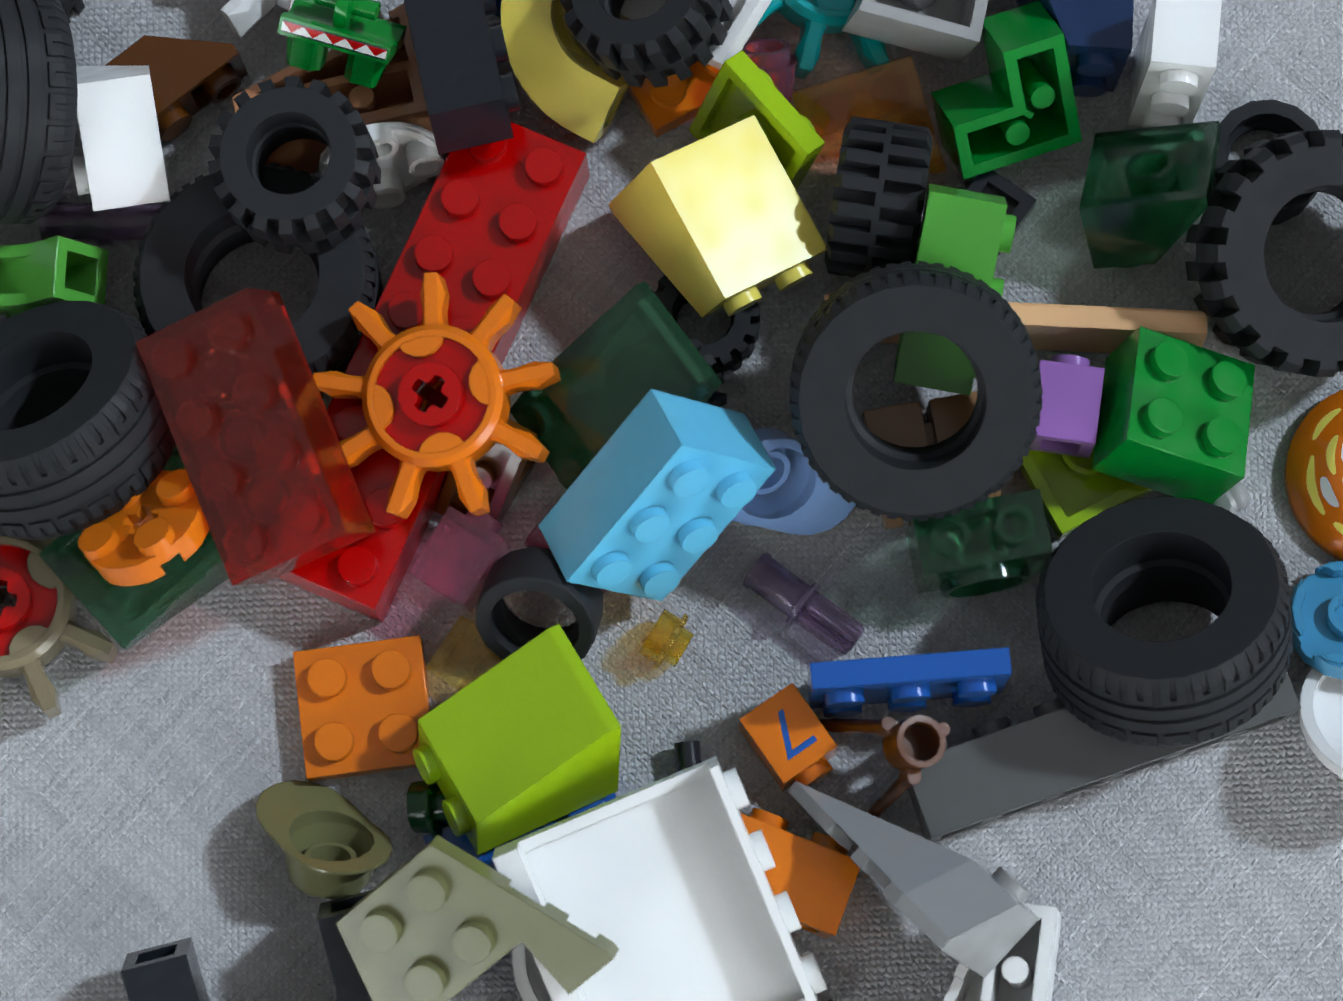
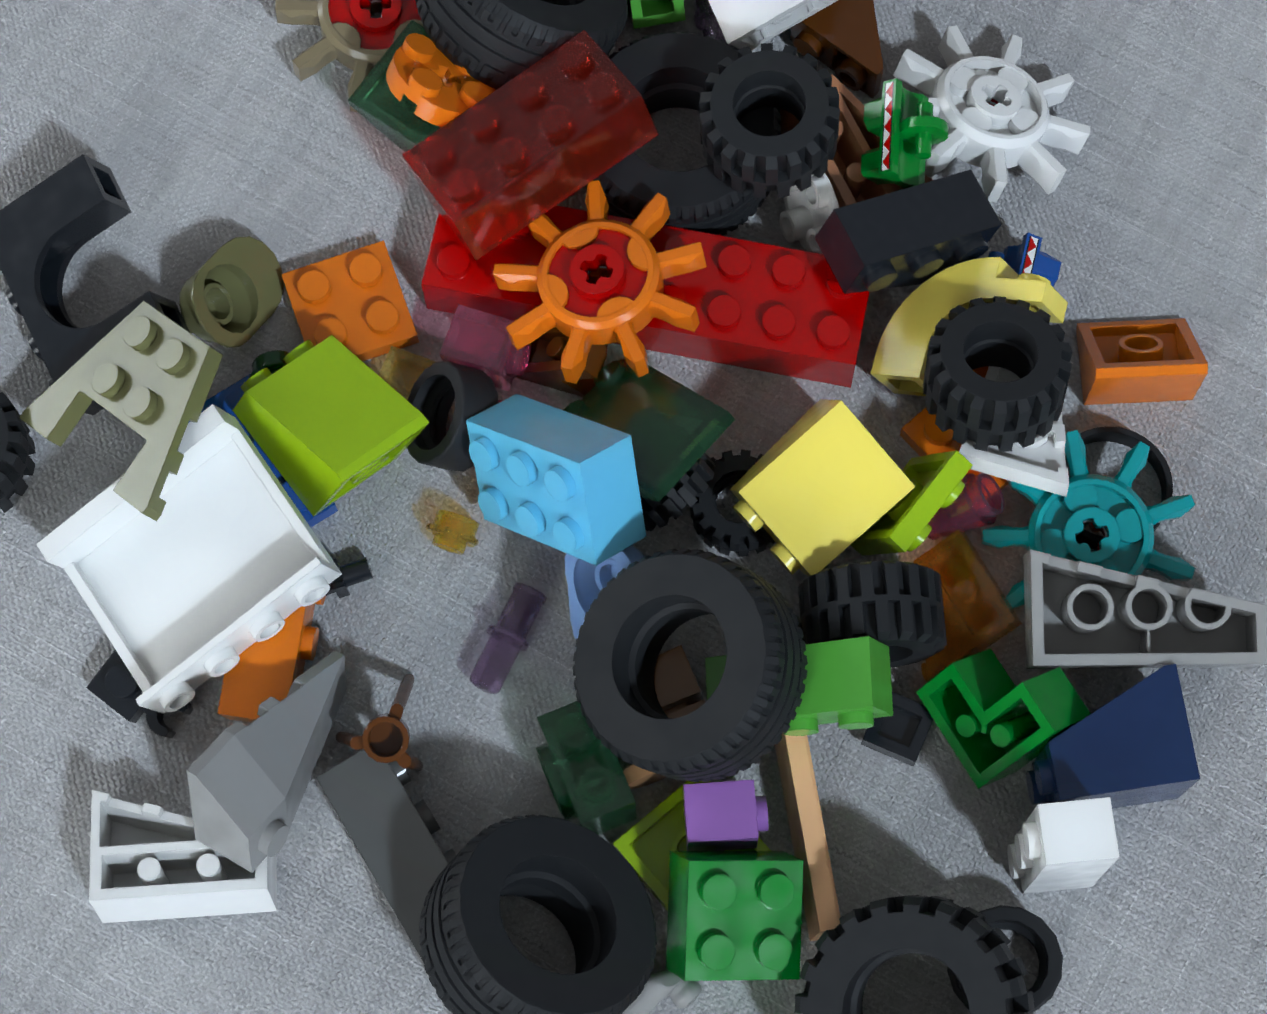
camera: 75 degrees right, 5 degrees down
(789, 739) = (385, 647): orange brick -> none
(908, 681) = (445, 729): blue plate -> none
(1146, 190) = (944, 850): clear green slope -> none

